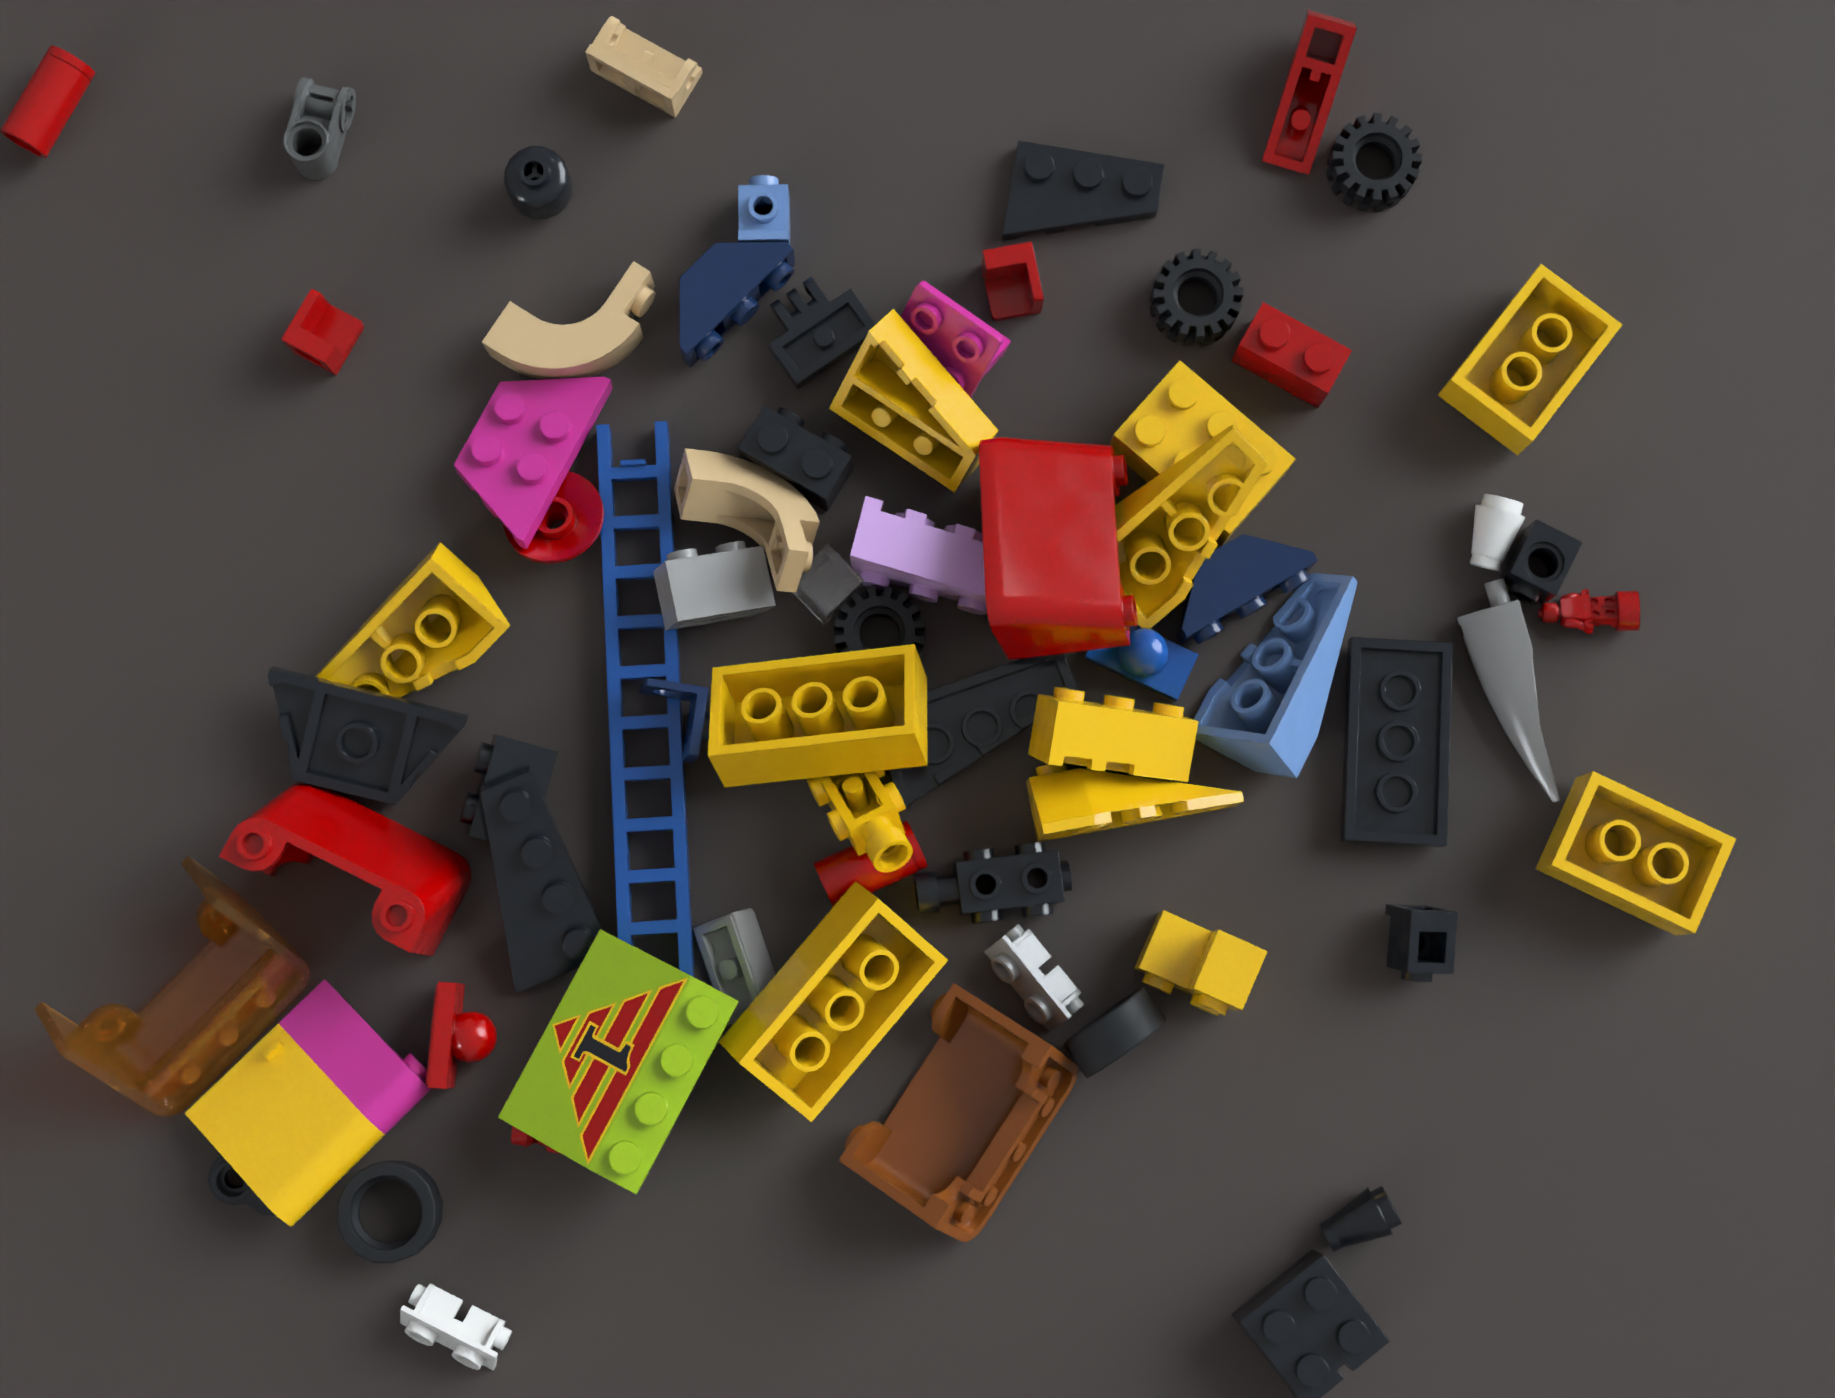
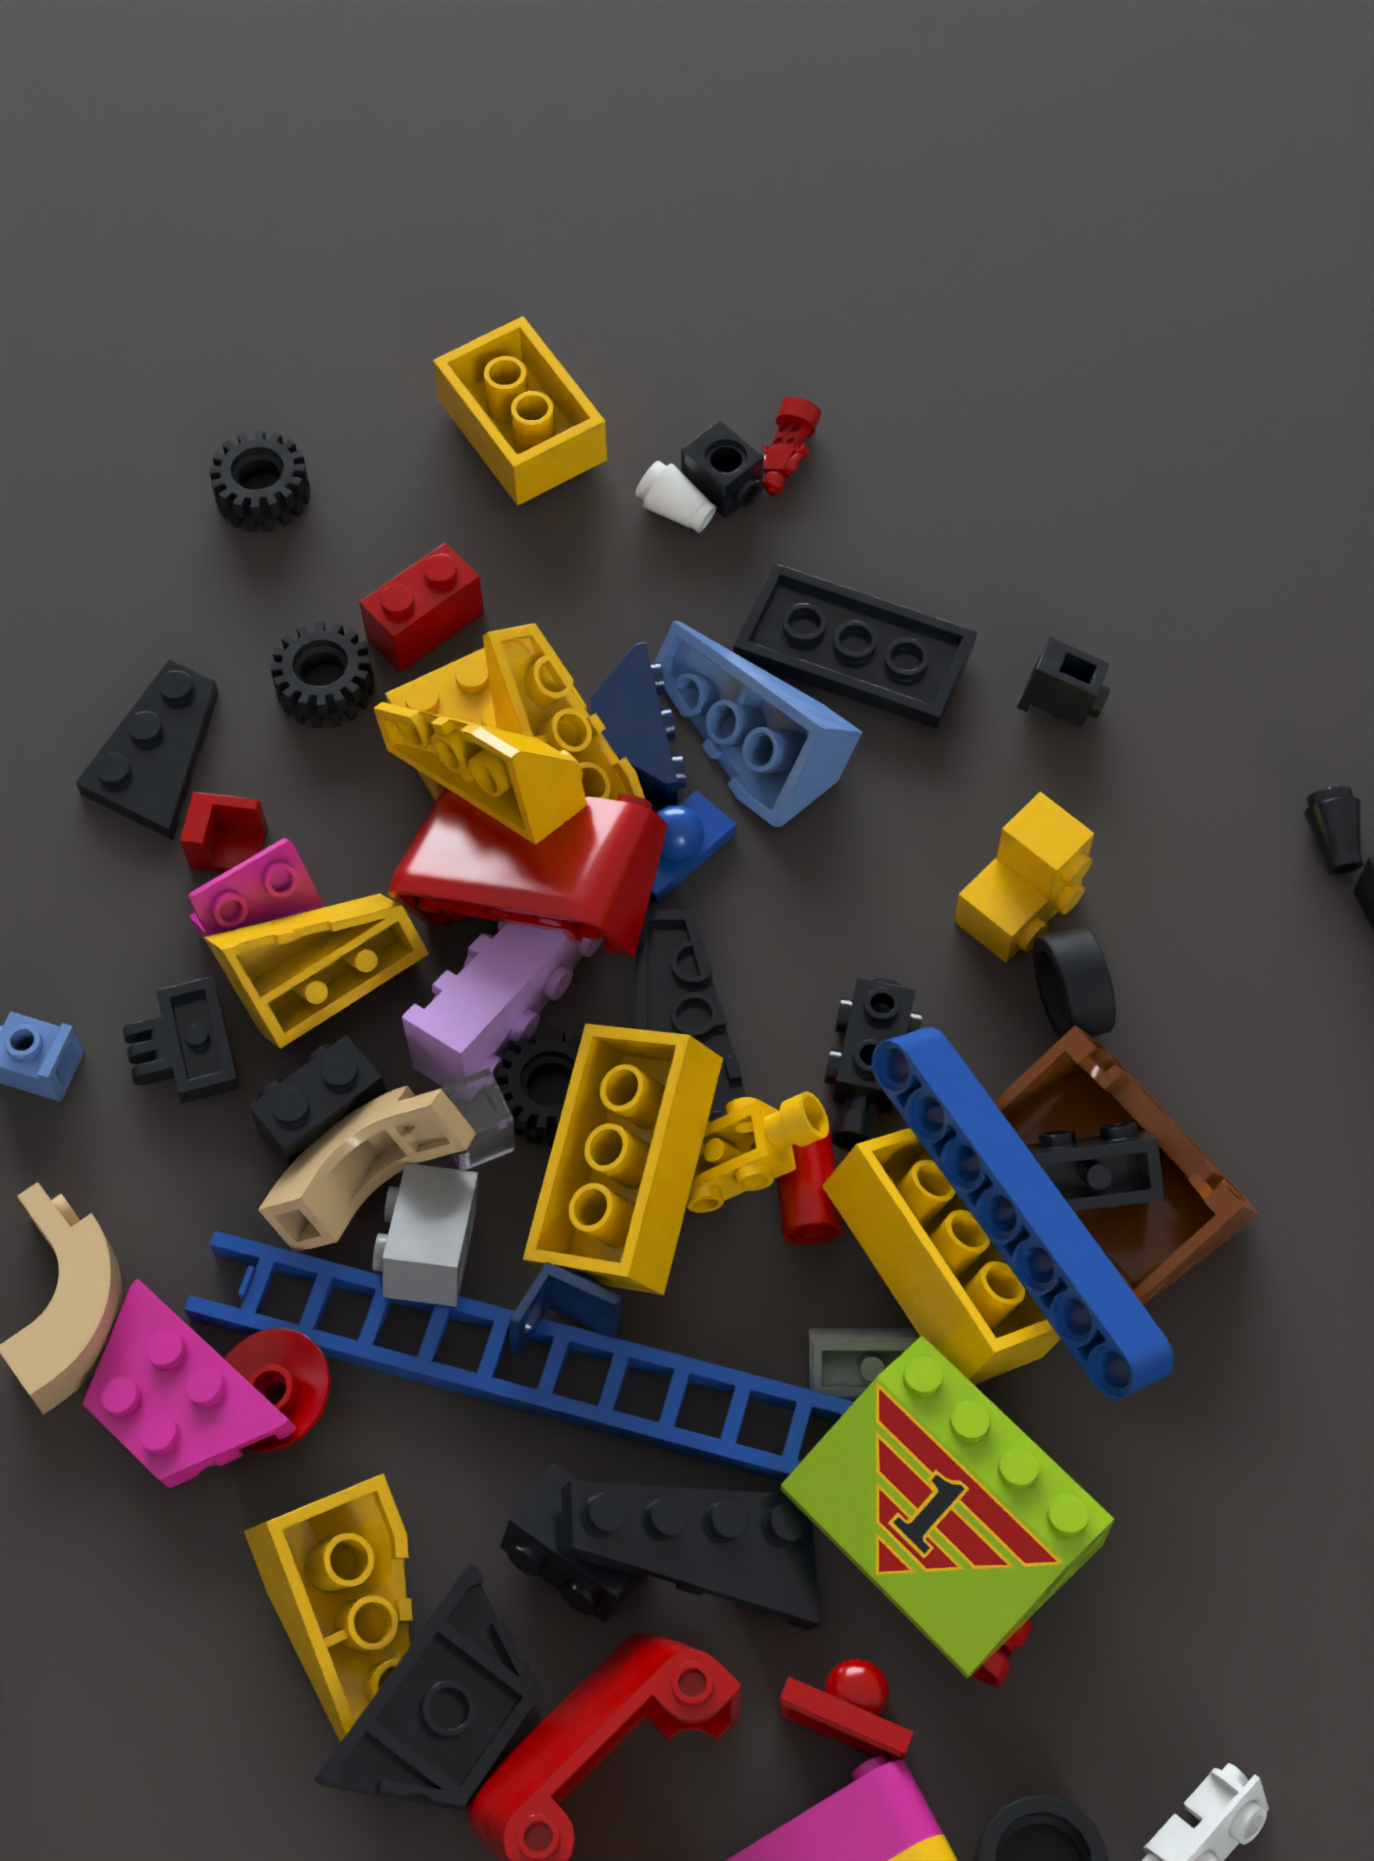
camera: 65 degrees left, 20 degrees down
(725, 291) = (96, 1122): dark blue slope -> none
(878, 1046) = (1023, 1213): none -> blue beam
(945, 1096) = (1102, 1169): none -> black brick
(1047, 997) = (1005, 1049): light grey hinge -> none
(1096, 801) = (814, 932): yellow wedge -> none
(1112, 490) = (494, 769): none -> yellow wedge
(1113, 735) = (752, 886): yellow wedge -> none
(1309, 91) = (157, 507): red slope -> none
(1505, 666) = (813, 528): light grey piece -> none
(1636, 854) = (1040, 477): yellow brick -> none

